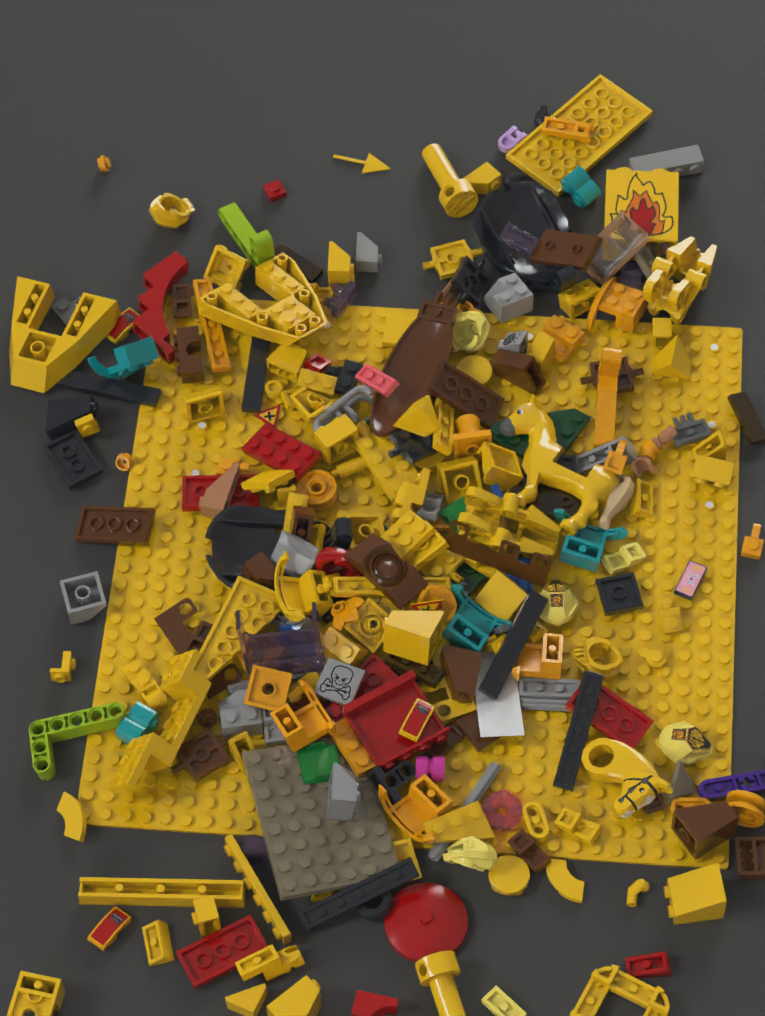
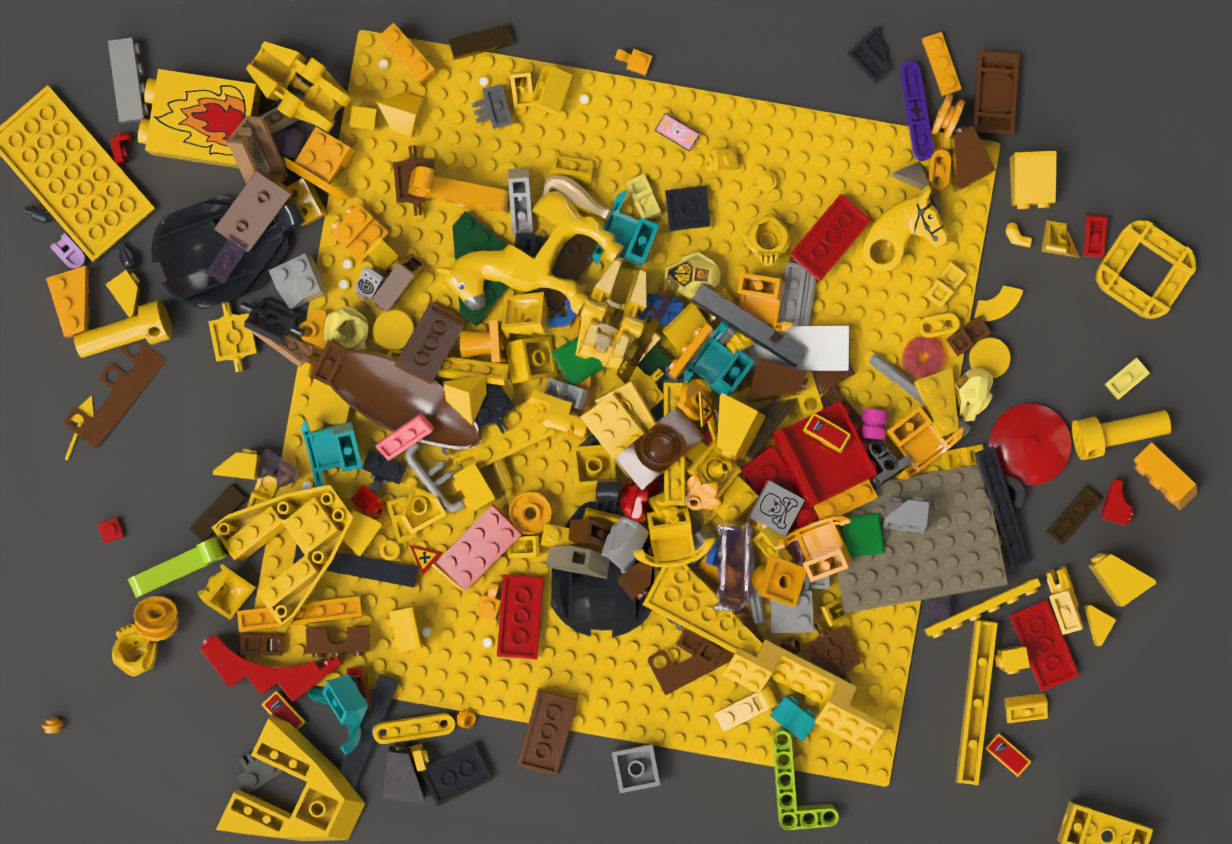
camera: 90 degrees left, 30 degrees up
(65, 672) = (711, 786): yellow bracket -> none
(74, 817) = (886, 786): yellow tile -> none
(113, 419) = (413, 728): none -> yellow plate
(141, 376) = (360, 677): none -> slope
(200, 221) = (156, 618): none -> light orange wheel
(220, 492) = (533, 618): nougat slope -> none
(268, 480) = (521, 564): yellow tile -> none
(274, 523) = (578, 561): none -> dark tan slope
(316, 382) = (393, 503): yellow plate -> none
(357, 970) = (1073, 515): none -> dark brown tile
(361, 333) = (331, 449): none -> teal piece
(367, 255) = (217, 432): light grey slope -> none
(395, 190) = (124, 393): none -> reddish brown piece
(470, 142) = (70, 299): none -> light orange wedge
(484, 598) = (690, 351): none -> light orange plate
(567, 129) = (68, 187): light orange plate -> none
(578, 730) = (849, 270): black tile -> none
(580, 187) = (152, 182): teal brick -> none
(605, 162) = (120, 151): none -> red bracket
(616, 460) = (536, 190): light orange plate -> none
(638, 929) = (1058, 240): none -> yellow slope
(649, 450) = (515, 153): nougat piece -> none
(684, 743) = (868, 166): light yellow helmet -> none
(717, 364) = (407, 54): none -> light orange arch

